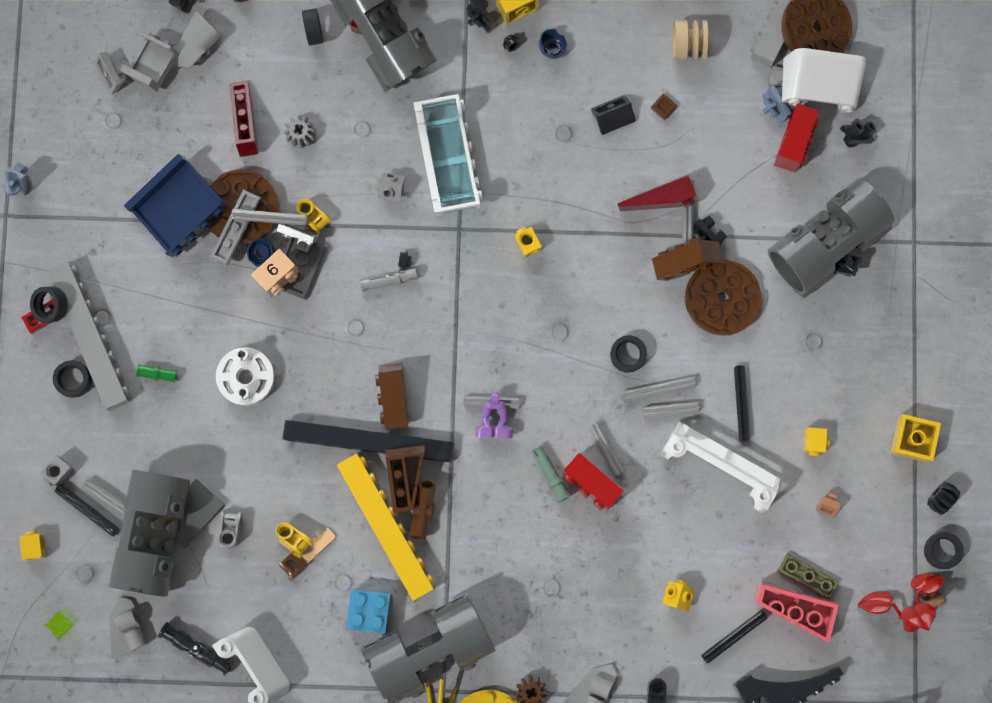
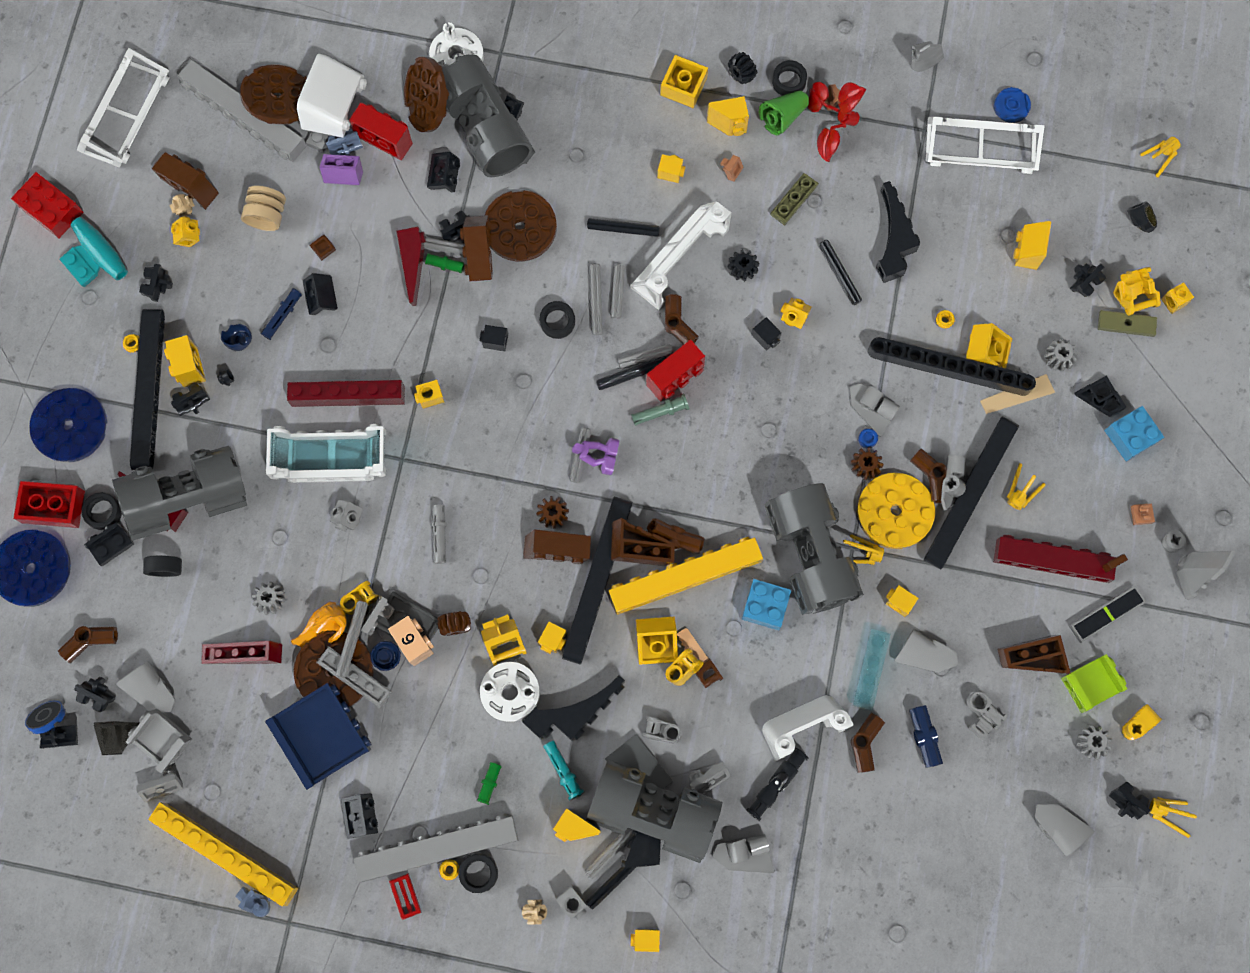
camera: 80 degrees left, 5 degrees down
(43, 437) = (534, 912): none -> tan gear
(56, 143) = (223, 854): none -> yellow brick
(59, 624) = (731, 924): clear neon green tile -> none
(60, 304) = (395, 898): black tyre -> none
(66, 351) = (444, 865): none -> yellow plate
(109, 259) = (359, 815): none -> black bracket
(109, 528) = (643, 851): none -> black slope
(123, 460) = (574, 828): none -> yellow slope
(149, 20) = (113, 736): none -> clear smoke slope
(172, 446) = (567, 778): none -> teal pin
(185, 576) = (712, 778): none -> light grey hinge
(229, 441) = (572, 718): none -> black arch
(287, 188) = (327, 618): none -> light orange hair
(300, 357) = (500, 632): none -> yellow piece
(301, 311) = (454, 623): none -> reddish brown gear
(302, 408) = (552, 638): none -> yellow brick
(317, 509) = (656, 640): none -> yellow slope
(404, 260) = (422, 515): black plate -> none
(431, 390) = (560, 510): none -> reddish brown gear
(514, 161) = (346, 393): none -> dark red brick
(559, 690) = (868, 438): none -> blue tile
(586, 439) = (628, 374): none -> black axle
(593, 85) = (280, 315): none -> dark blue pin
(597, 295) = (494, 338): none -> black brick
(651, 569) = (766, 334): none -> black brick
(658, 470) = (673, 312): none -> reddish brown piece
(668, 230) = (444, 263): none -> green pin
(719, 540) = (750, 265): none -> black gear
(747, 107) = (341, 169): none -> medium lavender brick
(767, 210) = (443, 171): none -> black bracket
(803, 610) = (826, 205): coral wedge -> none
(842, 175) = (425, 94): none -> reddish brown plate
(858, 133) = (389, 78): black hips -> none
(884, 493) = (729, 116): none -> yellow slope
(903, 549) = (782, 111): none -> bright green cone
(914, 190) = (453, 41): none -> white piece

